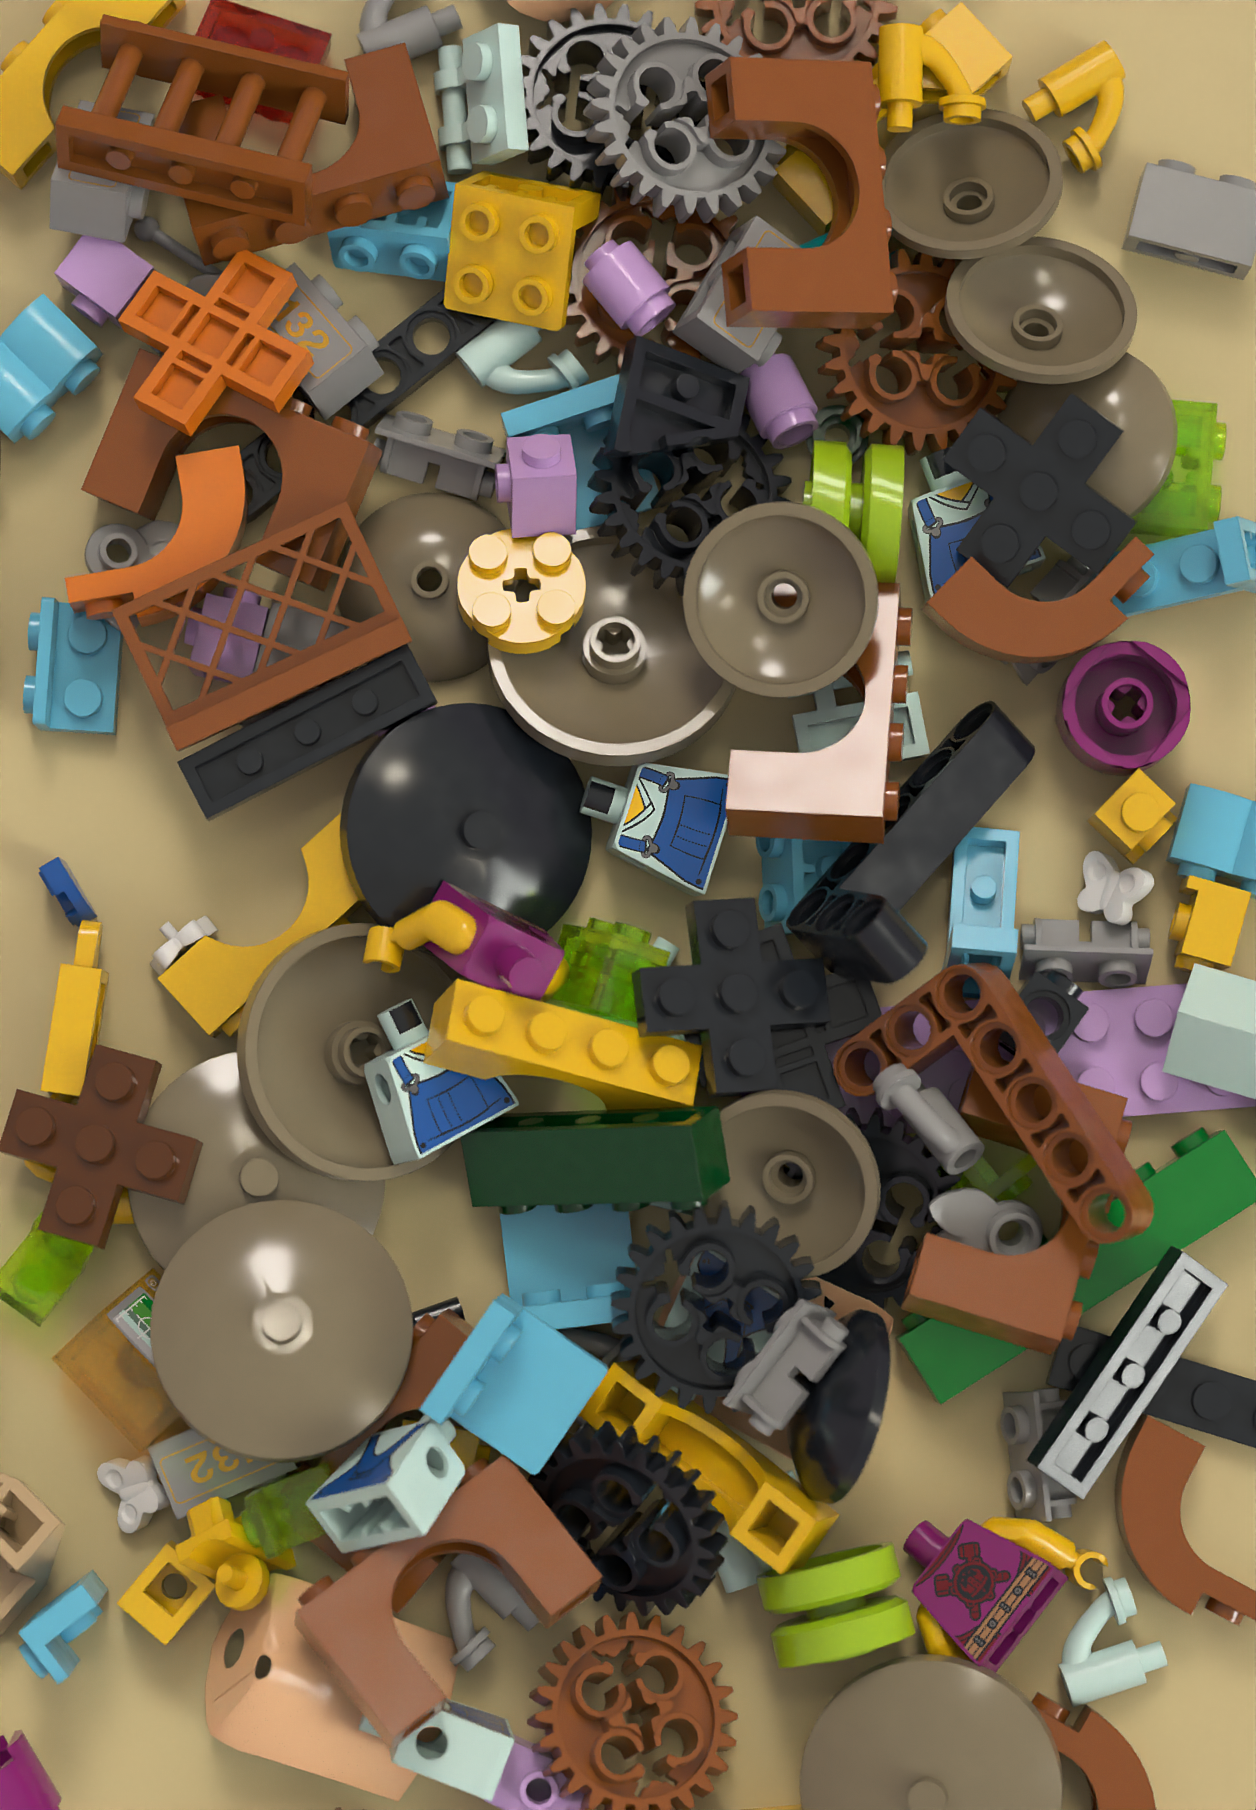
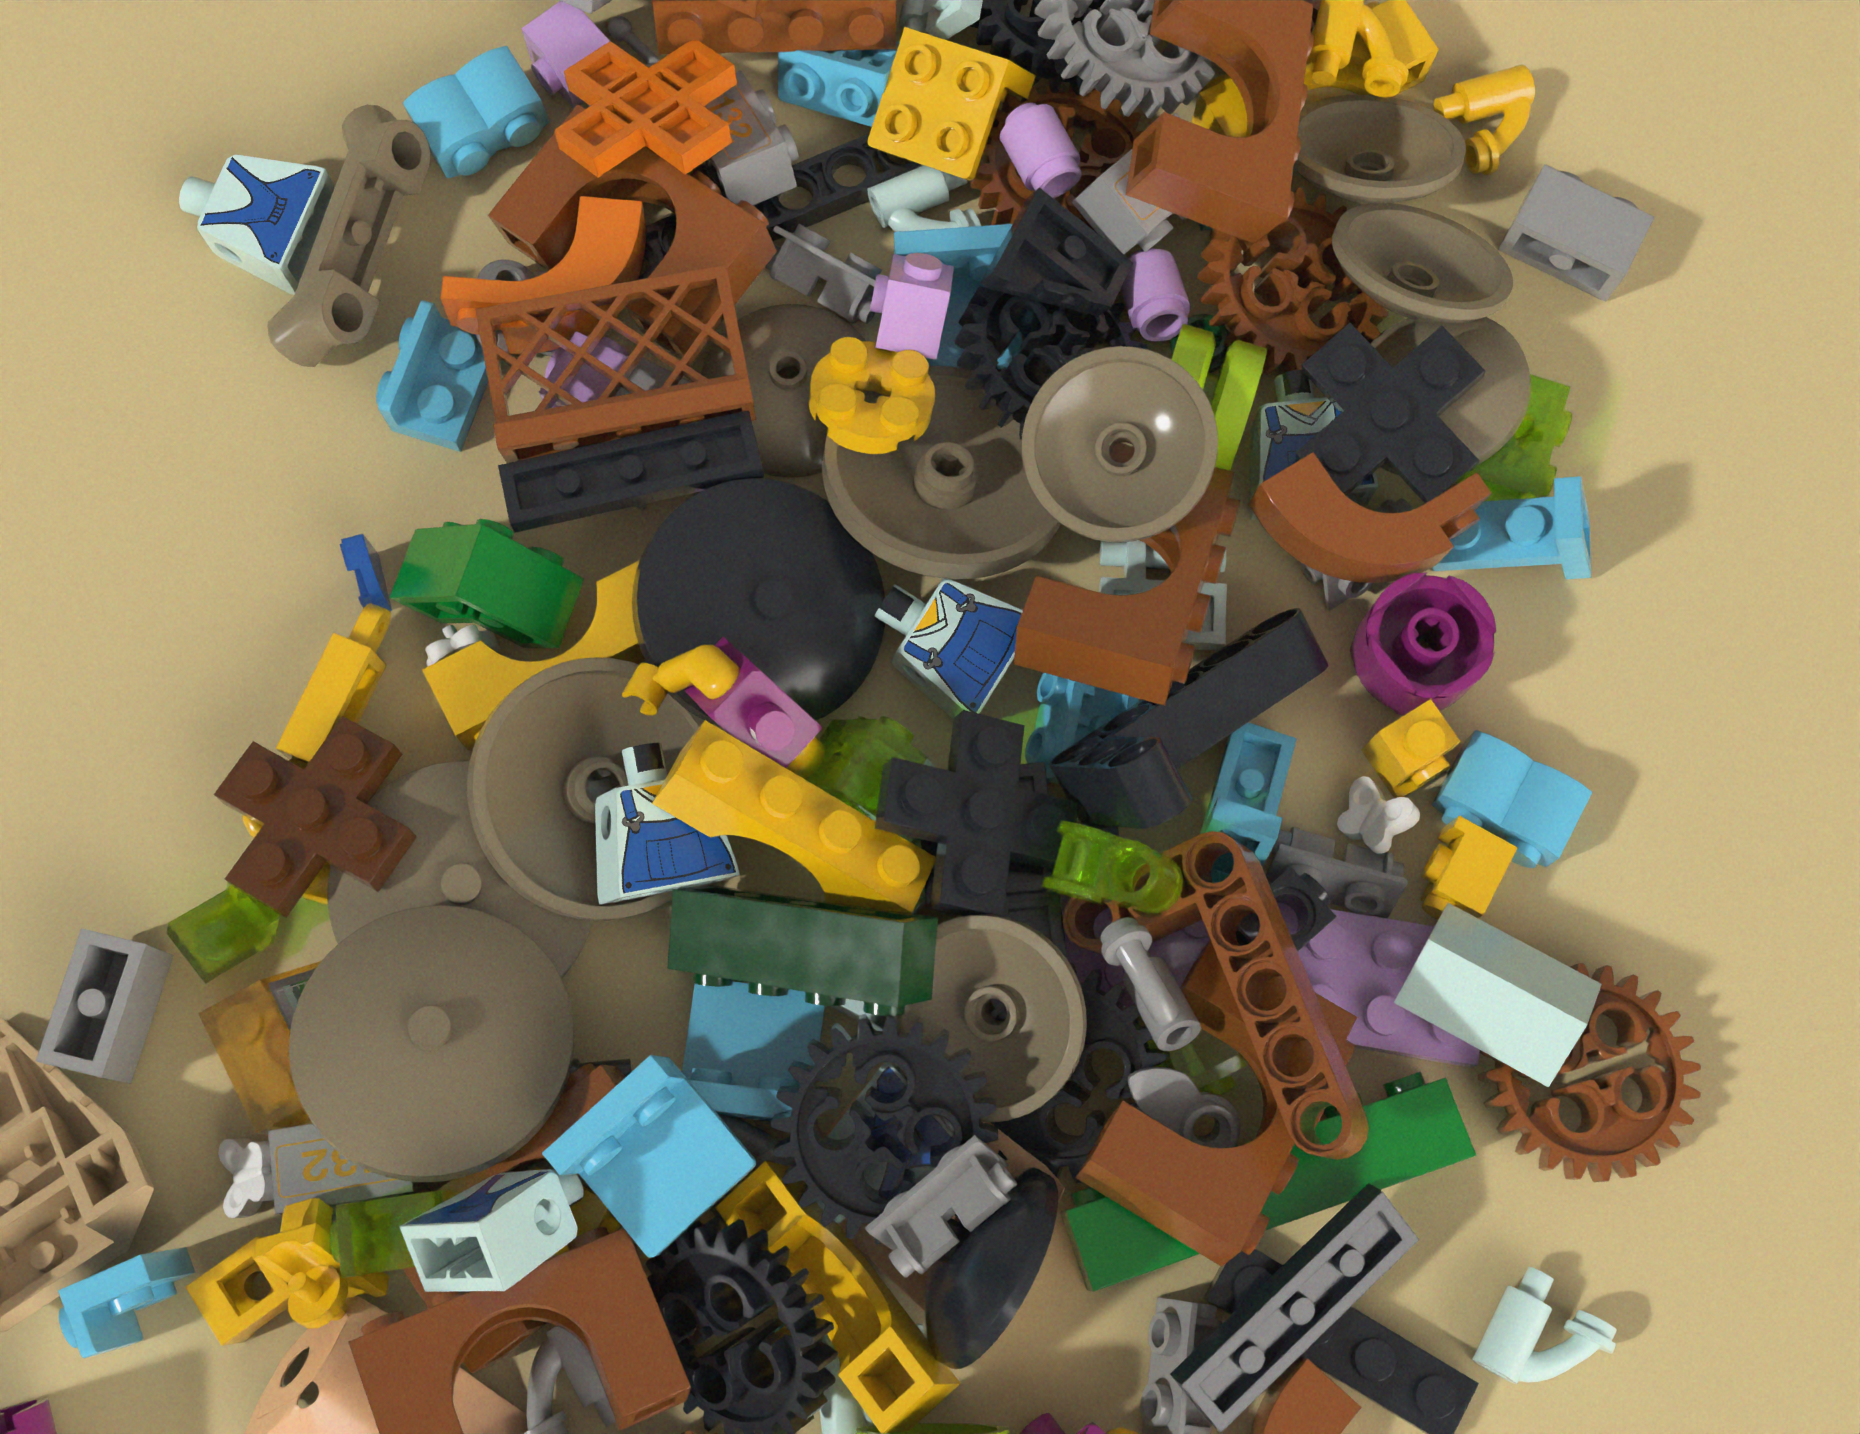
camera: 10 degrees right, 10 degrees down
(192, 873) = (488, 580): none -> green brick
(858, 1022) = (1102, 869): none -> clear neon green piece

